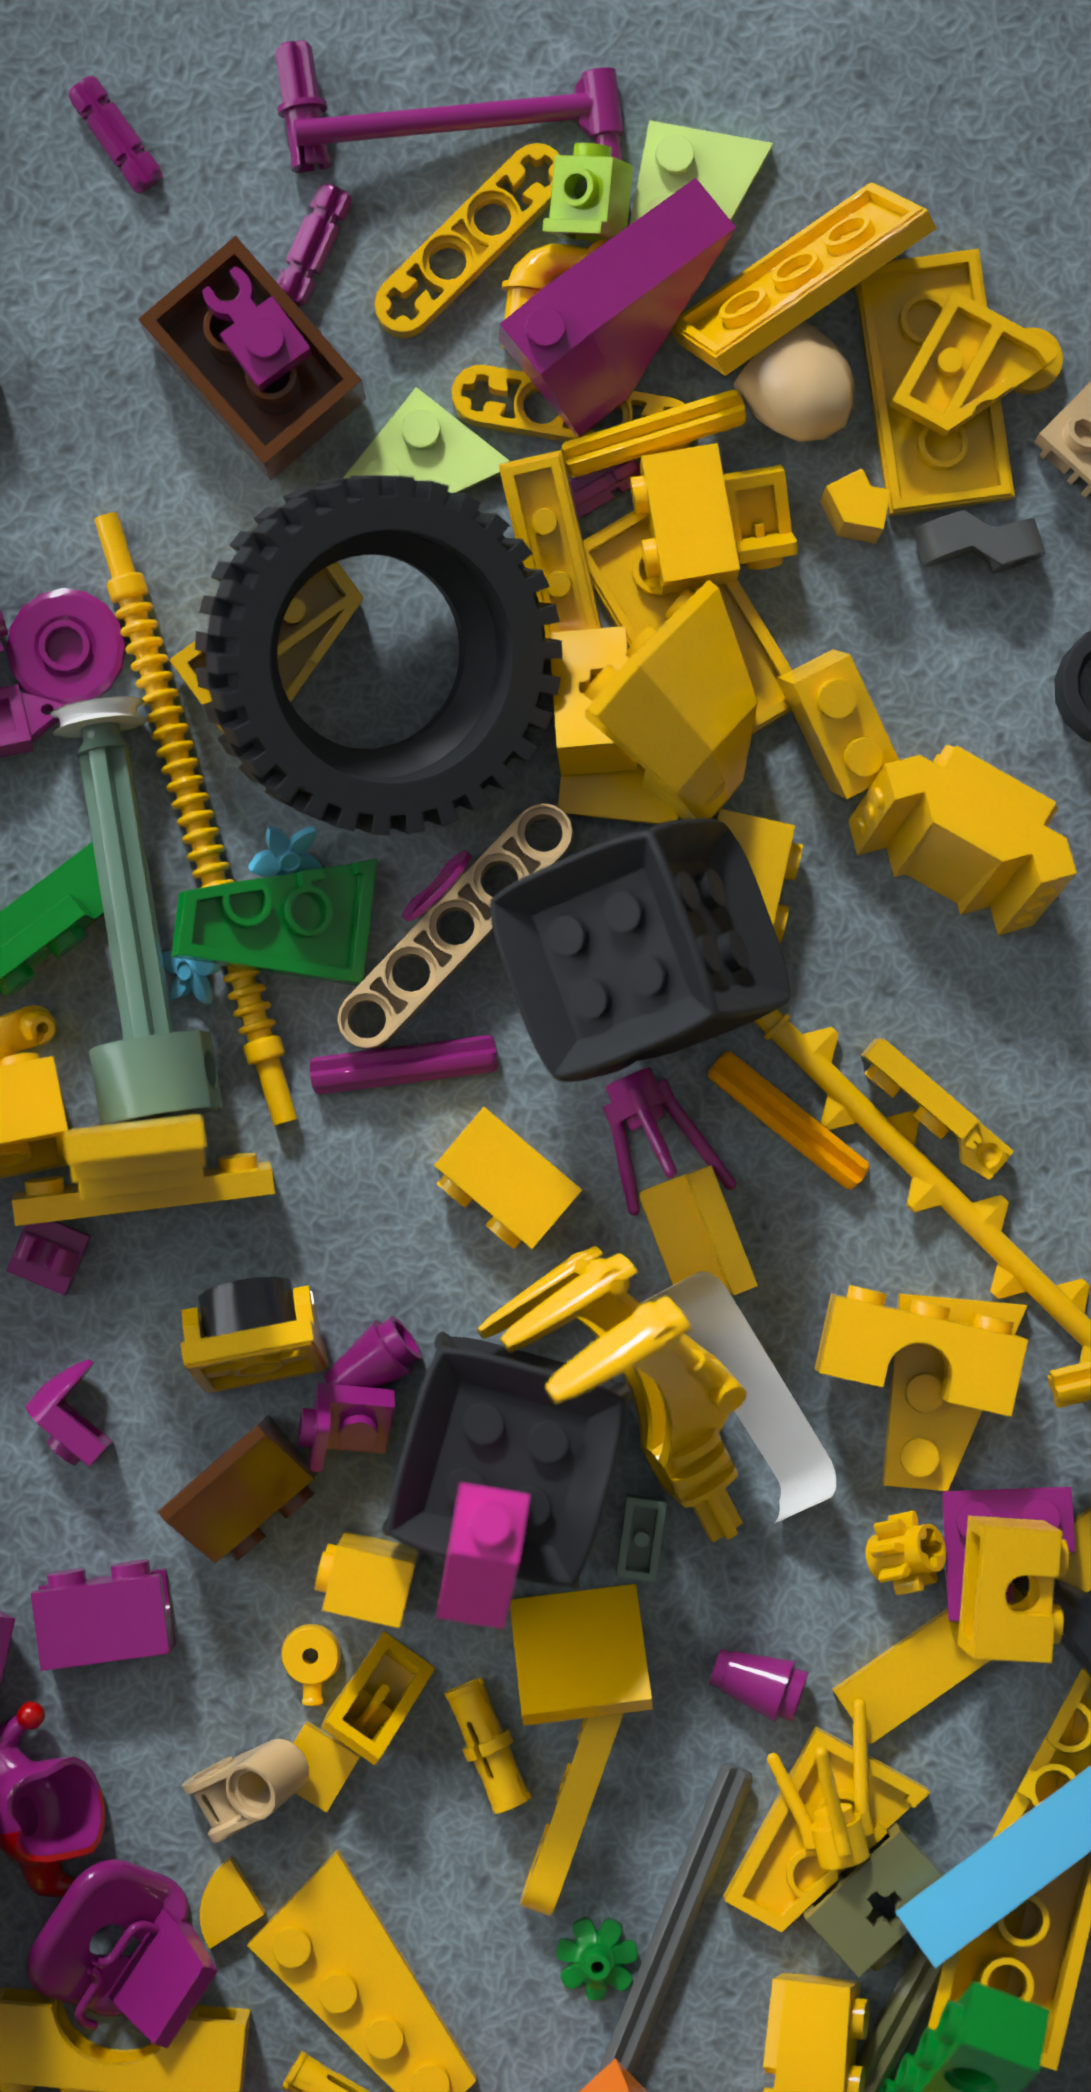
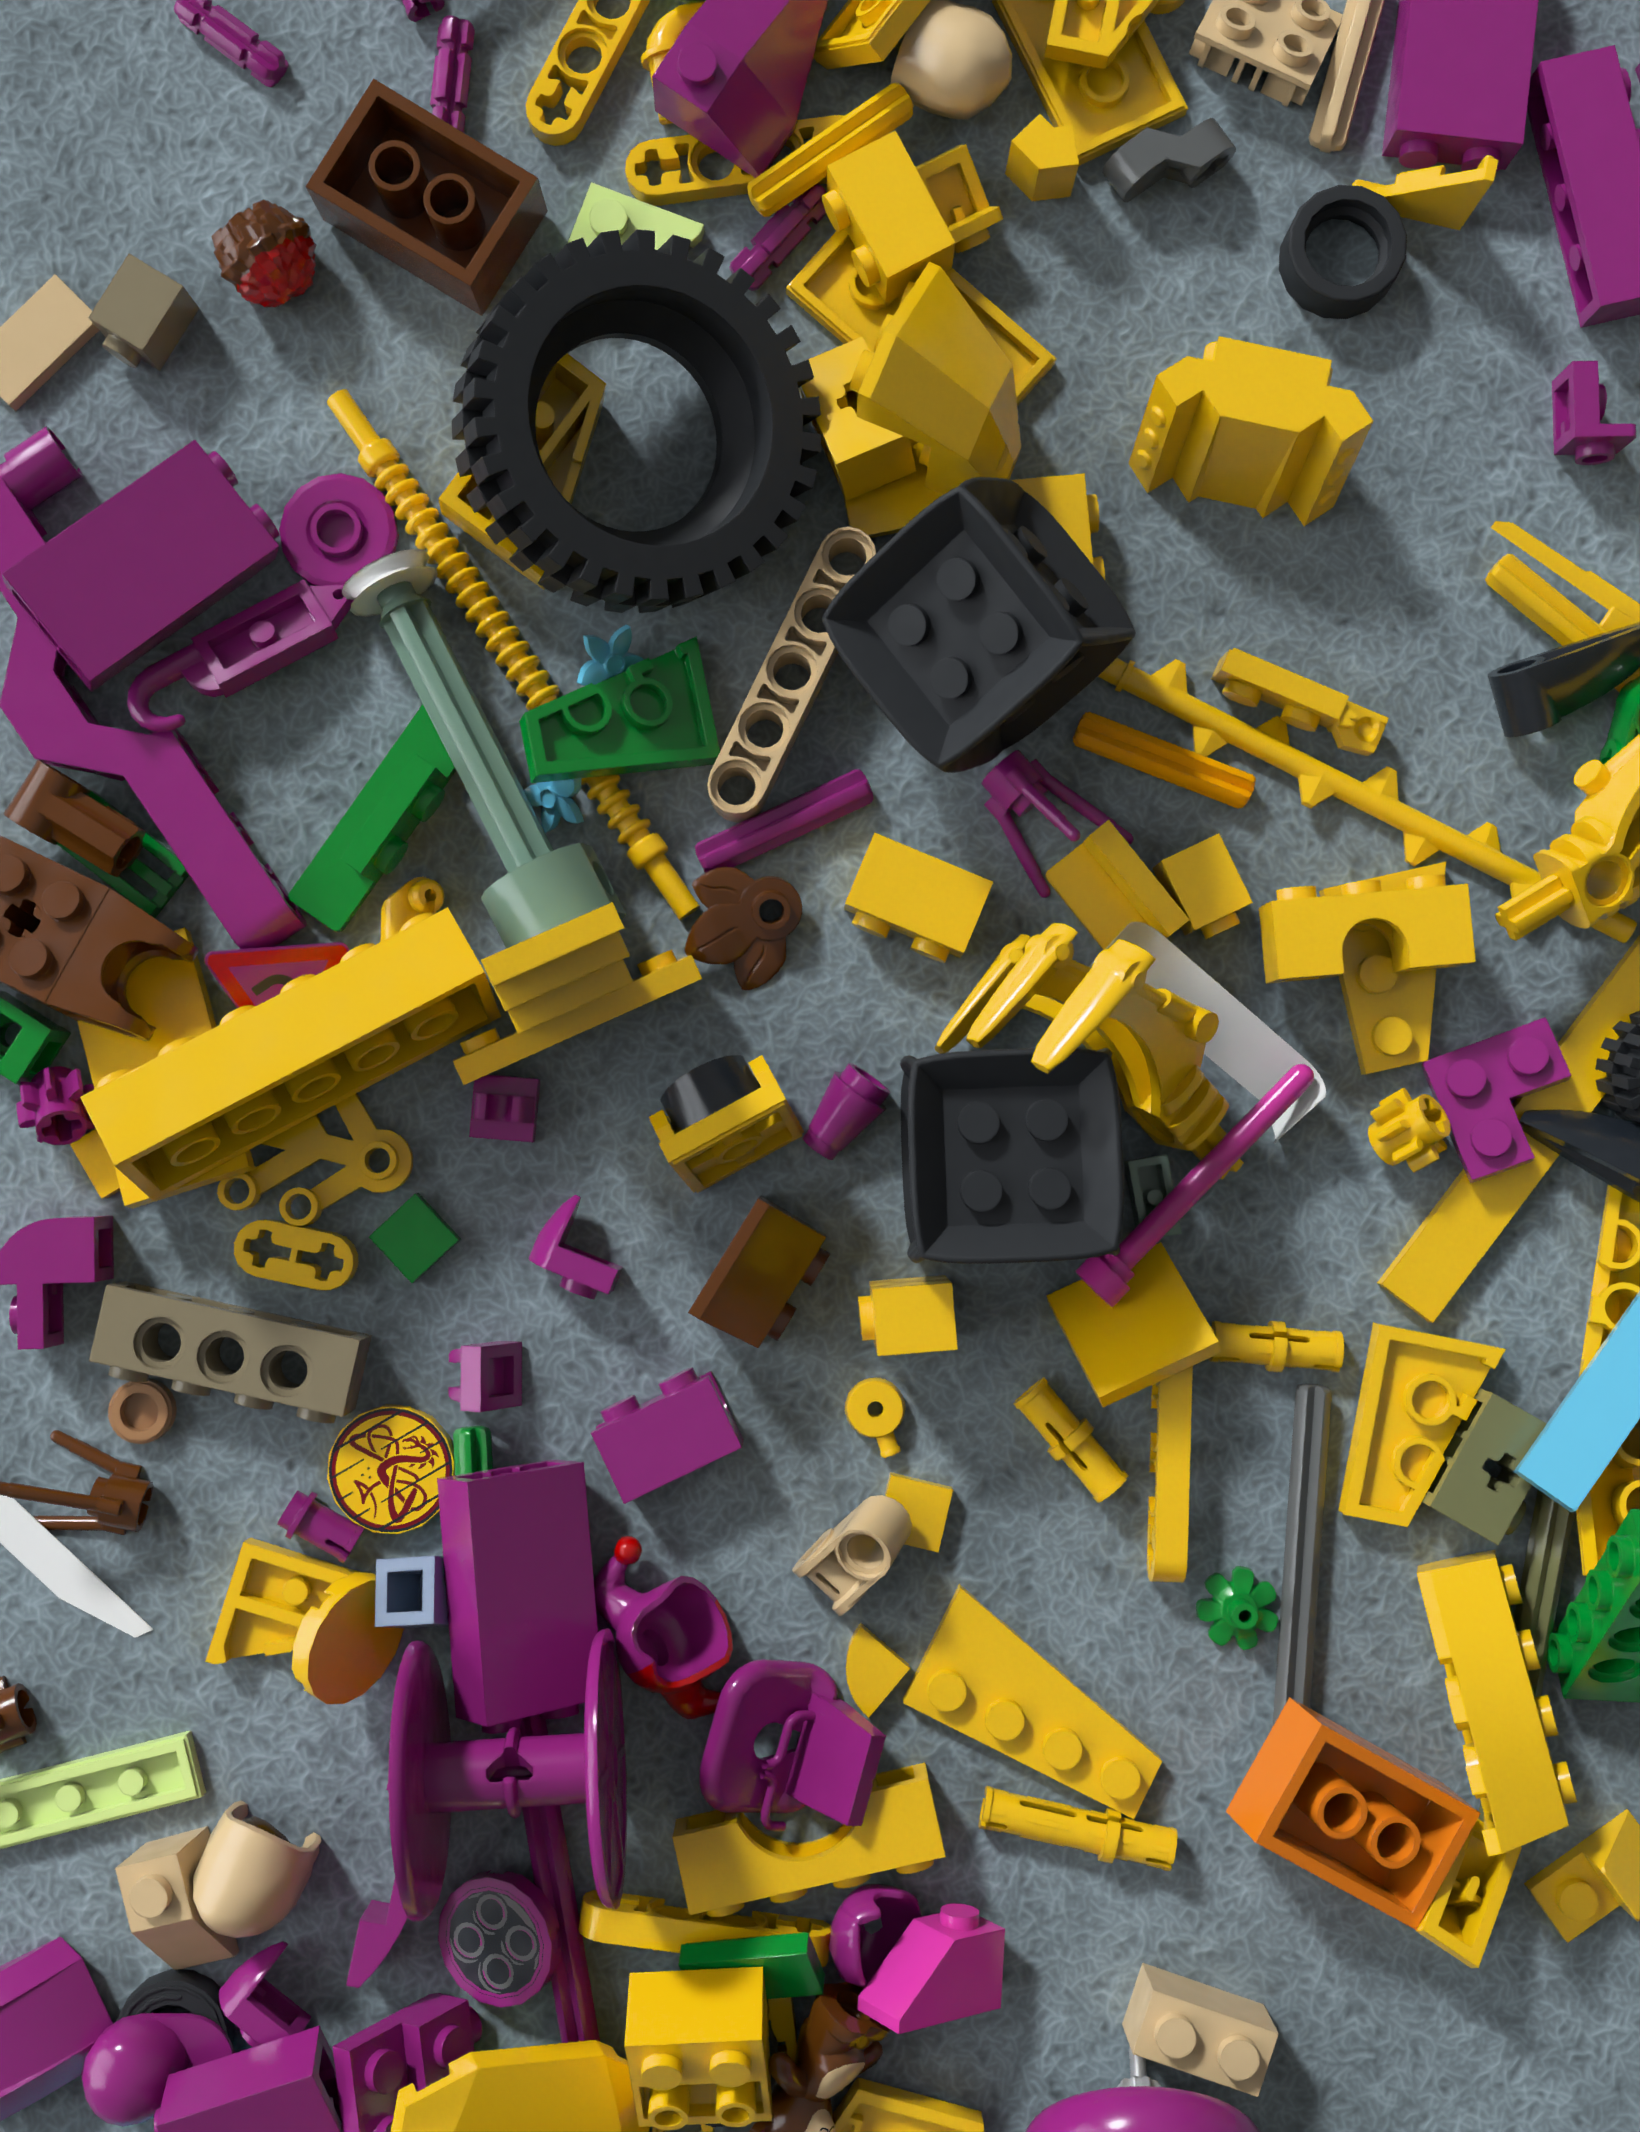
camera: 15 degrees left, 0 degrees up
(81, 363) = (266, 254): none -> piece
(260, 335) = (425, 162): magenta plate -> none
(323, 1151) = (735, 930): none -> reddish brown plate
(346, 1420) = (838, 1174): magenta bracket -> none
(377, 1698) = (952, 1427): yellow slope -> none
(449, 876) = (767, 636): magenta piece -> none
(482, 1555) = (1023, 1243): dark pink slope -> none
(548, 523) = (748, 242): yellow tile -> none
(572, 1605) = (1109, 1273): none -> dark pink piece
(714, 1719) = (1279, 1346): none -> yellow pin
(760, 1682) = (1310, 1297): magenta cone -> none
(784, 1257) = (1204, 886): none -> yellow brick
(837, 1830) = (1434, 1408): yellow plant -> none
(838, 722) = (1093, 364): yellow brick -> none
(994, 1556) = (1500, 1107): yellow brick -> none

